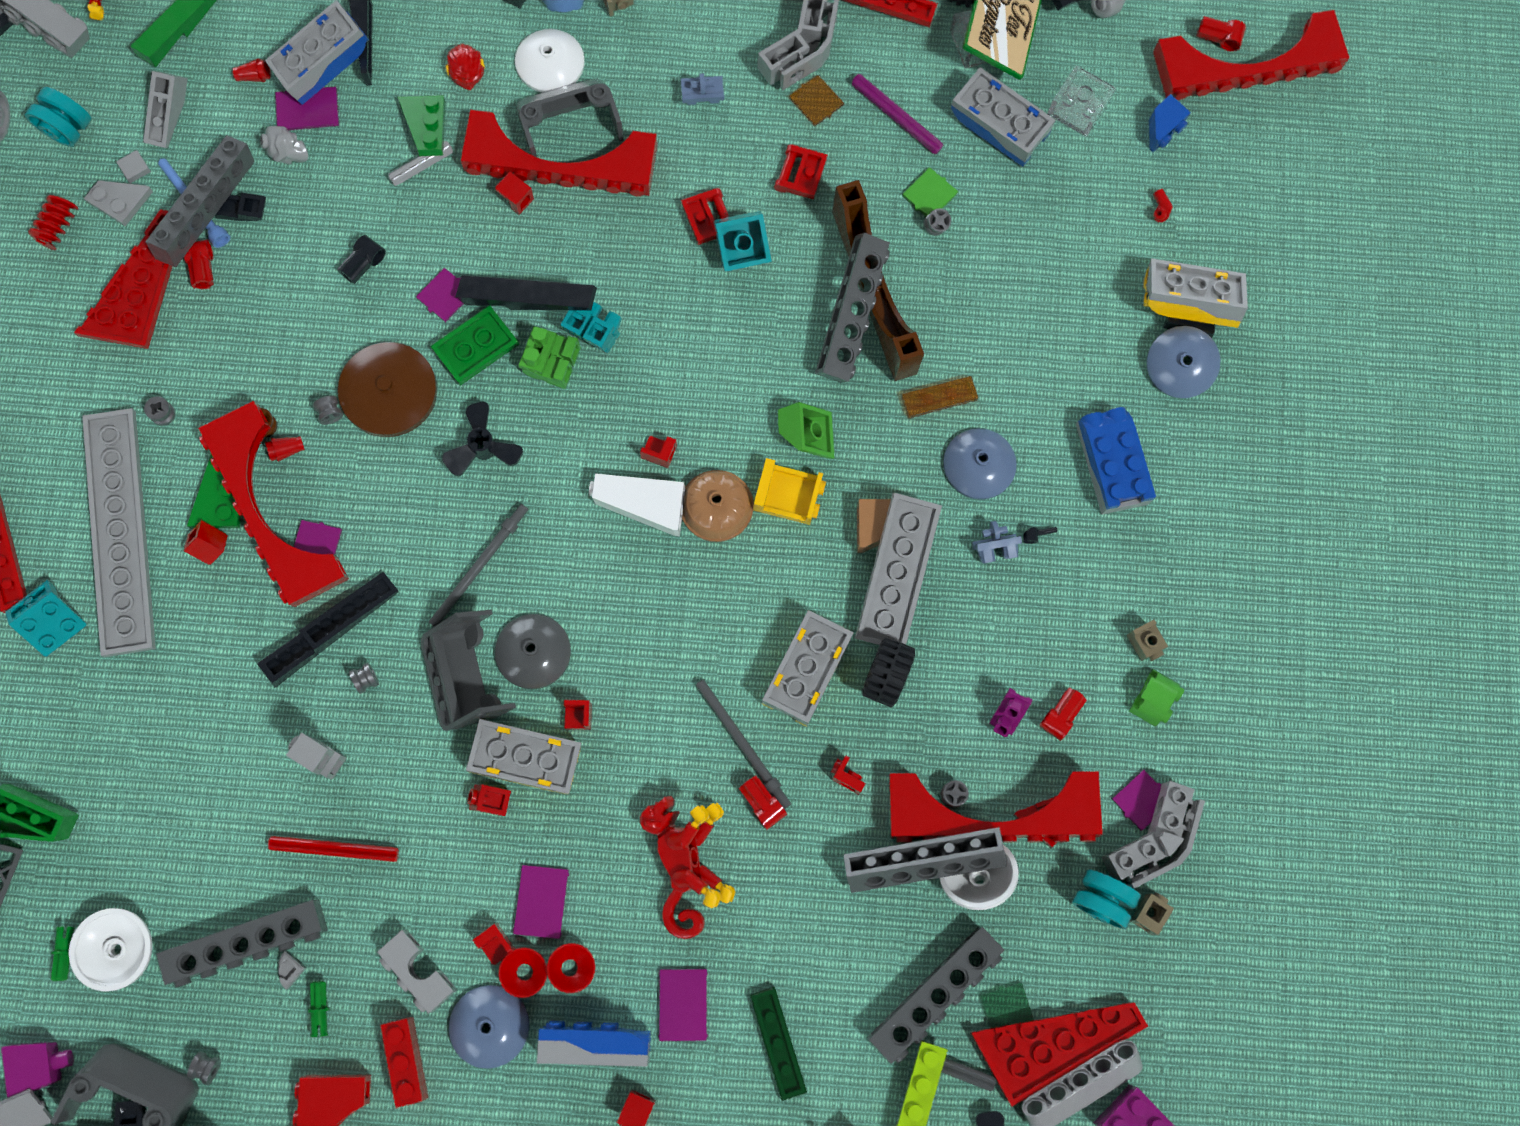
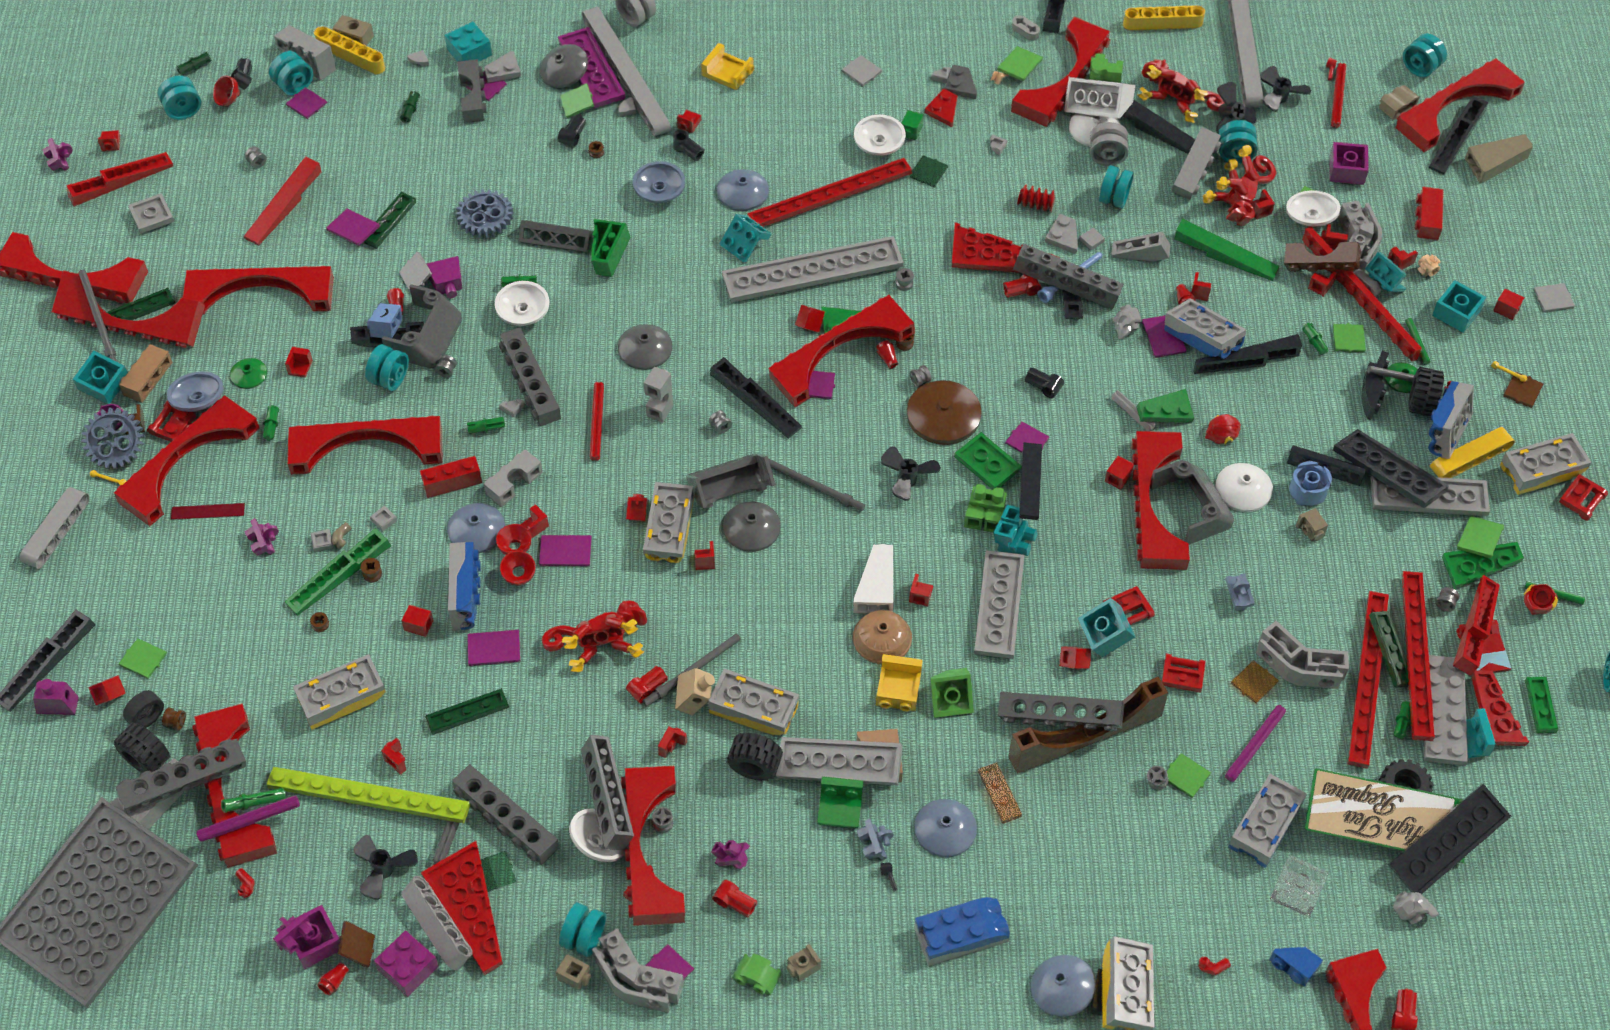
camera: 90 degrees right, 20 degrees down
(228, 776) = (644, 353): none -> dark grey dish
(242, 50) = (1200, 289): none -> red panel
(687, 360) = (999, 604): none -> light grey plate
(771, 285) = (1075, 657): none -> red panel
(782, 741) = (693, 690): none -> tan torso
(948, 579) = (840, 802): none -> green bracket

